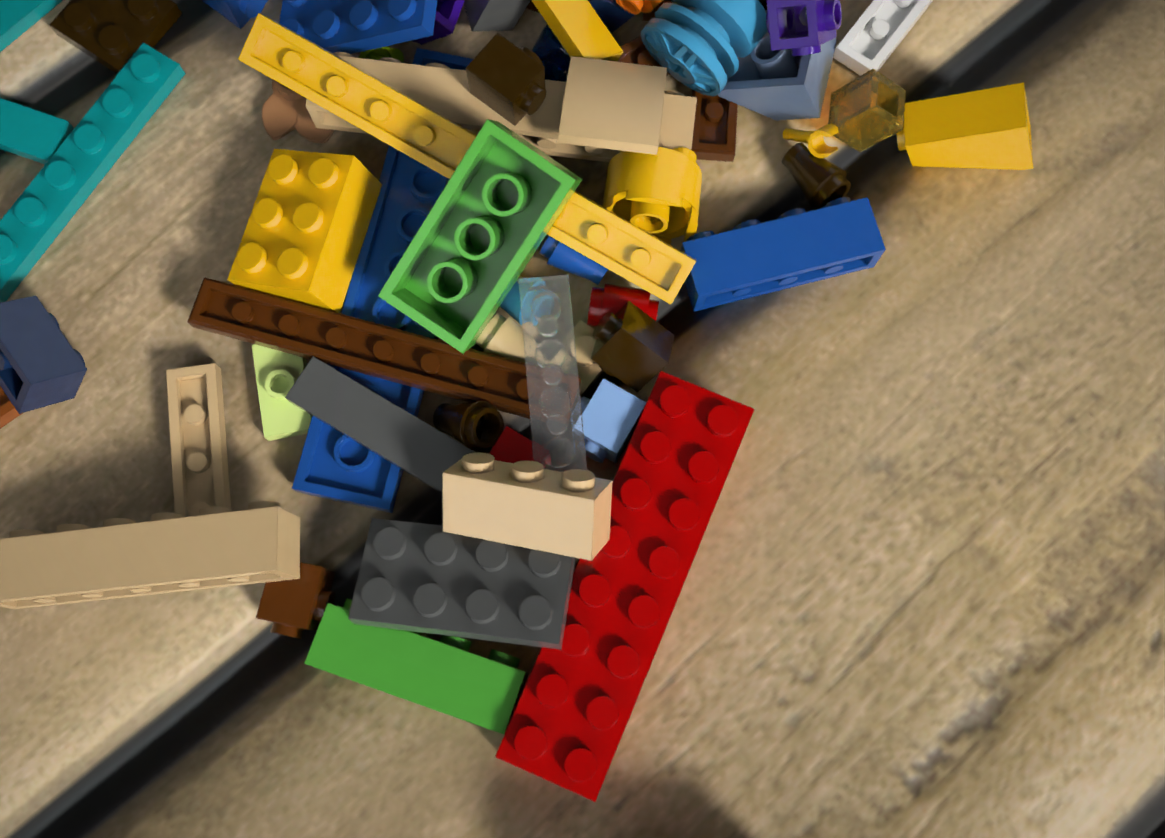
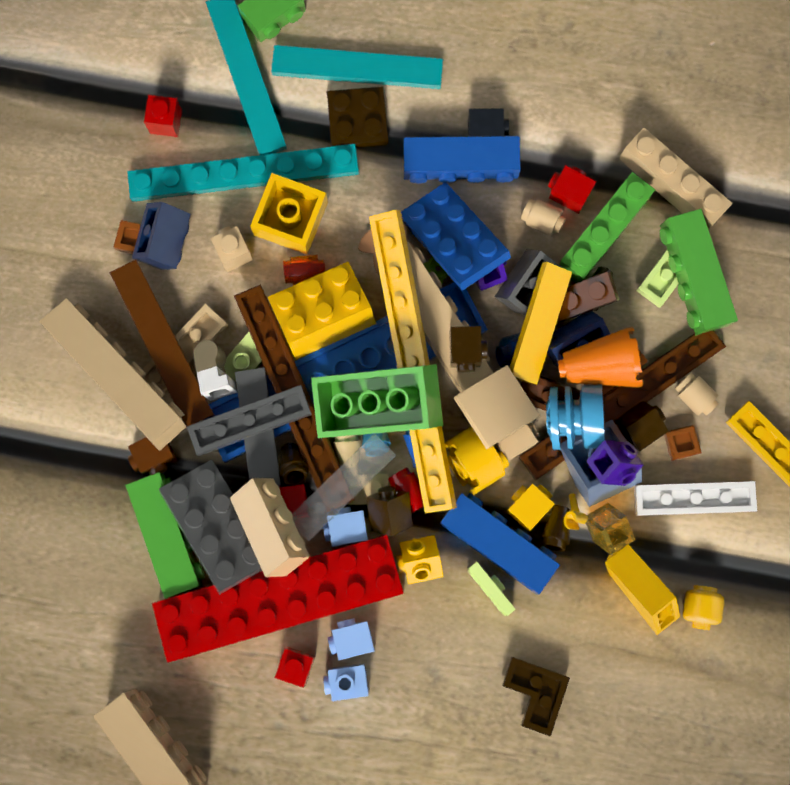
camera: 50 degrees right, 5 degrees up
(127, 281) = (231, 248): none -> tan brick
(150, 176) = (289, 213): none -> yellow brick
(161, 462) = (161, 343): none -> reddish brown tile
(230, 217) = (302, 268): none -> clear red brick
(247, 422) = (210, 371): none -> leg
(363, 426) = (249, 420): none -> dark grey plate
(725, 359) = (420, 559): none -> yellow brick
(737, 631) = (295, 667): none -> red brick
(757, 529) = (351, 639): none -> light blue brick
(762, 183) = (530, 505): none -> yellow brick
(809, 579) = (346, 682): none -> light blue brick
(829, 306) = (492, 588): none -> yellowish green plate
(1007, 343) = (545, 693): none -> dark brown plate
(1047, 83) = (703, 607): none -> yellow head

